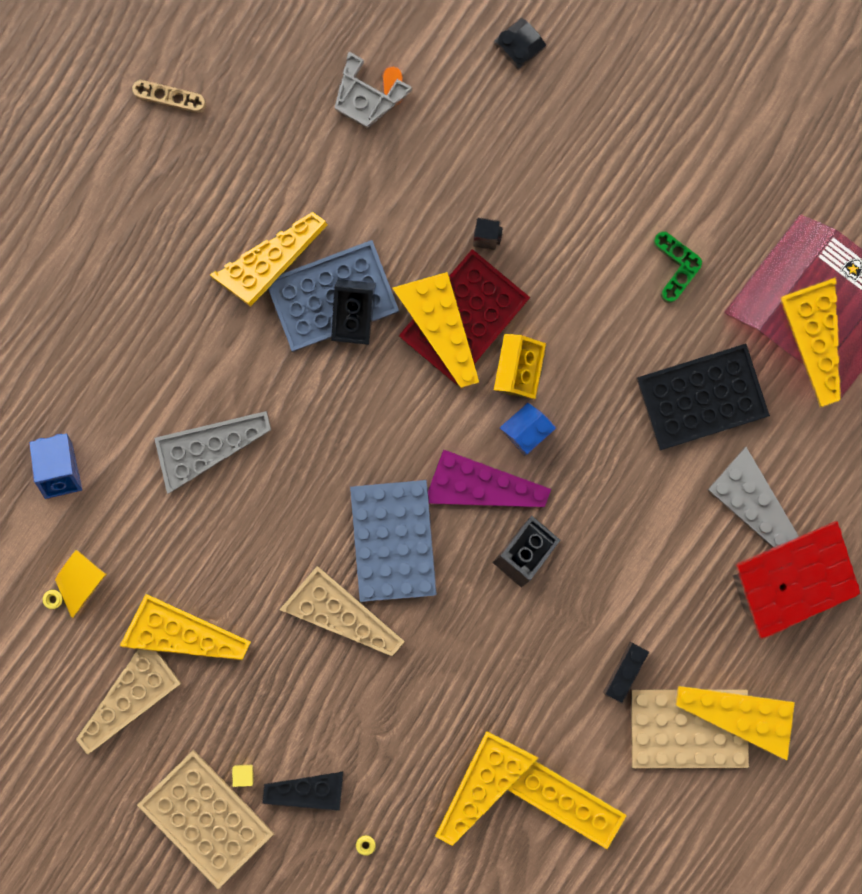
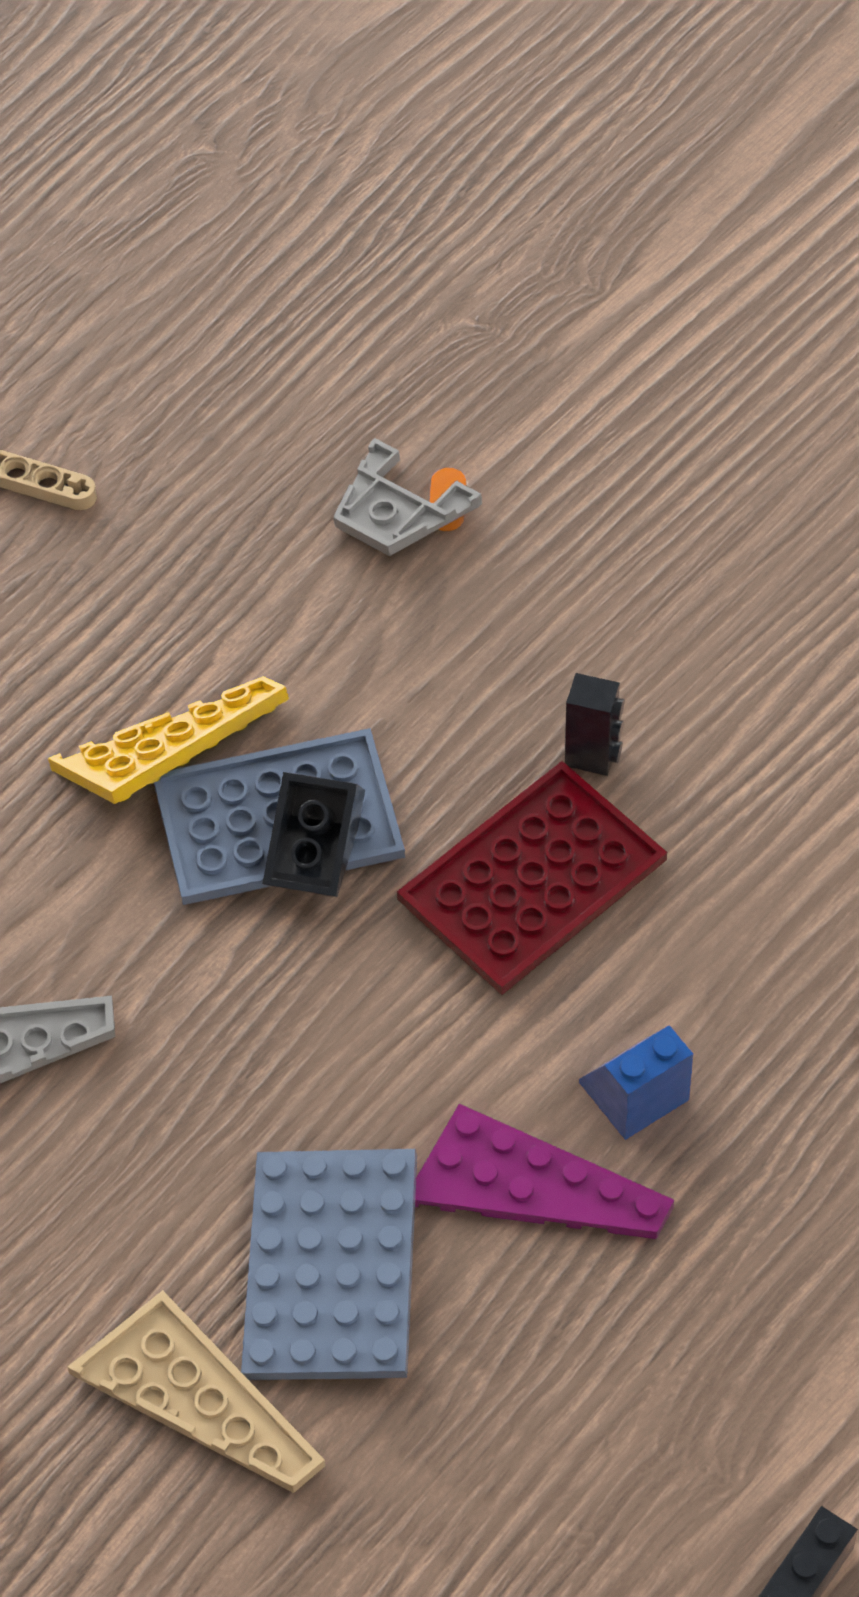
camera: 10 degrees right, 30 degrees down
(438, 317) = (483, 871): yellow wing -> none
(519, 366) = (633, 969): yellow slope -> none
(520, 43) = (691, 456): black slope -> none
(526, 551) = (607, 1313): black slope -> none

